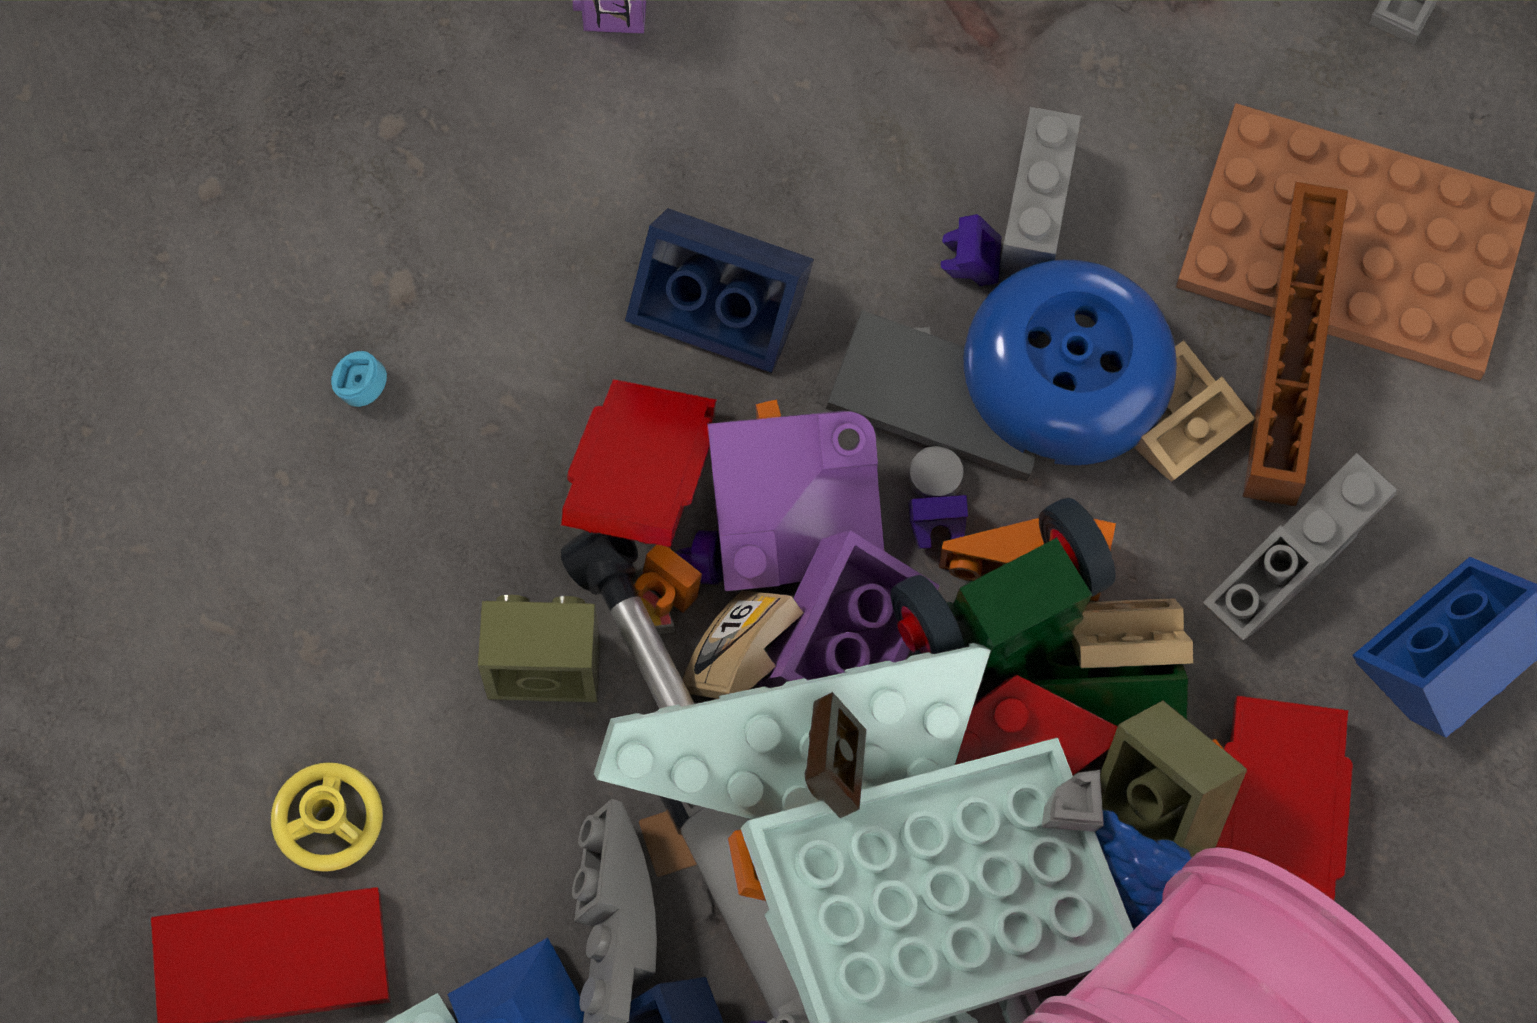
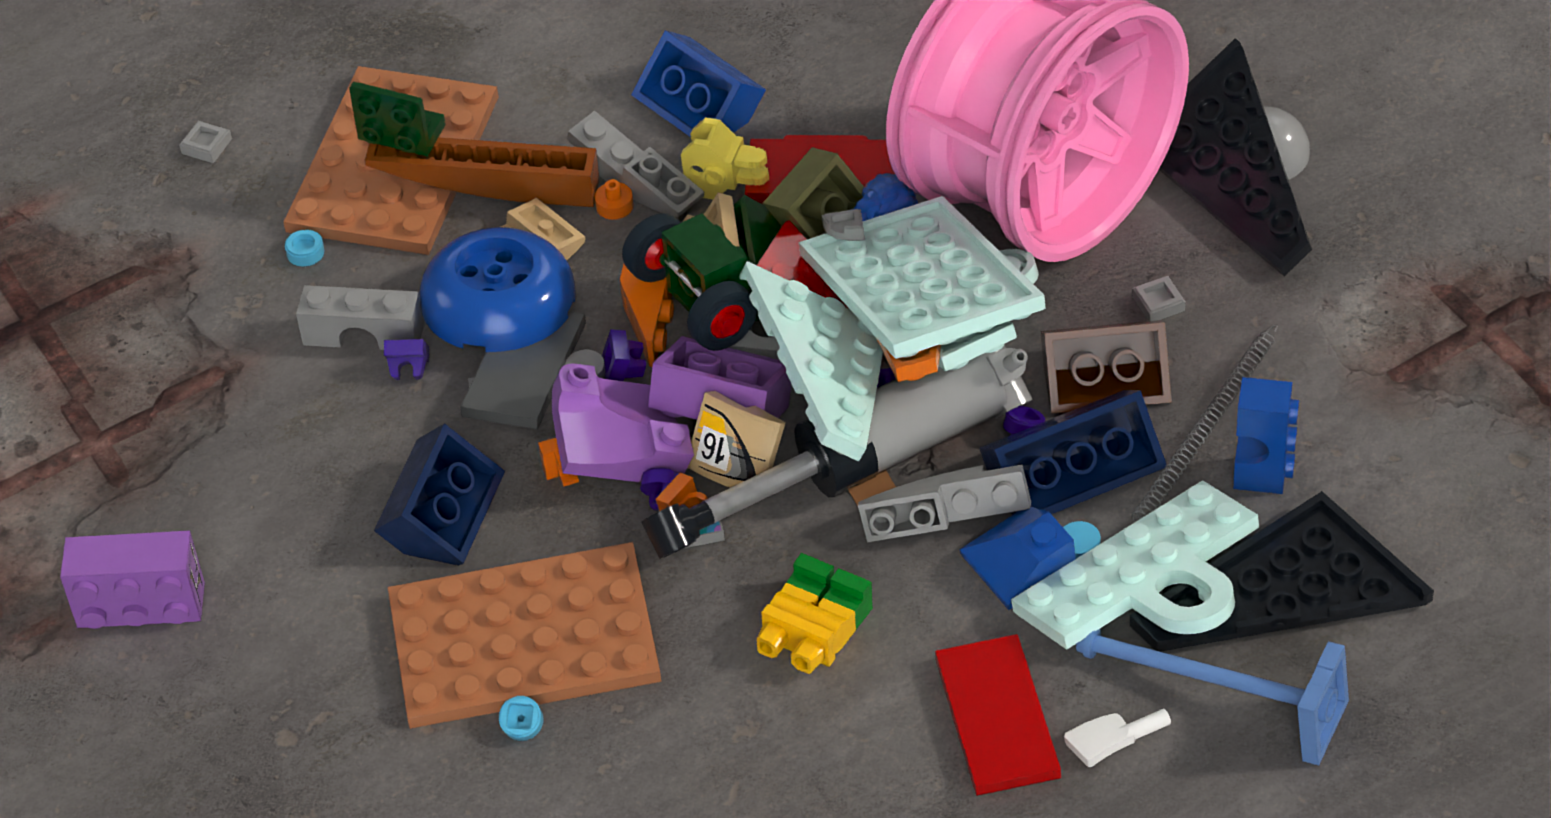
camera: 90 degrees left, 20 degrees down
(312, 802) = (880, 689): light yellow piece -> none
(457, 734) = (814, 613): none -> yellow hips
(489, 383) = (522, 630): none -> nougat plate
(539, 649) = (745, 556): olive brick -> none
(638, 463) = (596, 507): red piece -> none
(835, 755) = (851, 308): dark brown plate -> none
(1194, 132) = (304, 248): none -> medium azure tile
(1251, 522) = (614, 200): none -> orange tile
(1284, 665) = (722, 158): none -> light yellow hinge
(1345, 214) = (394, 119): none -> dark green bracket

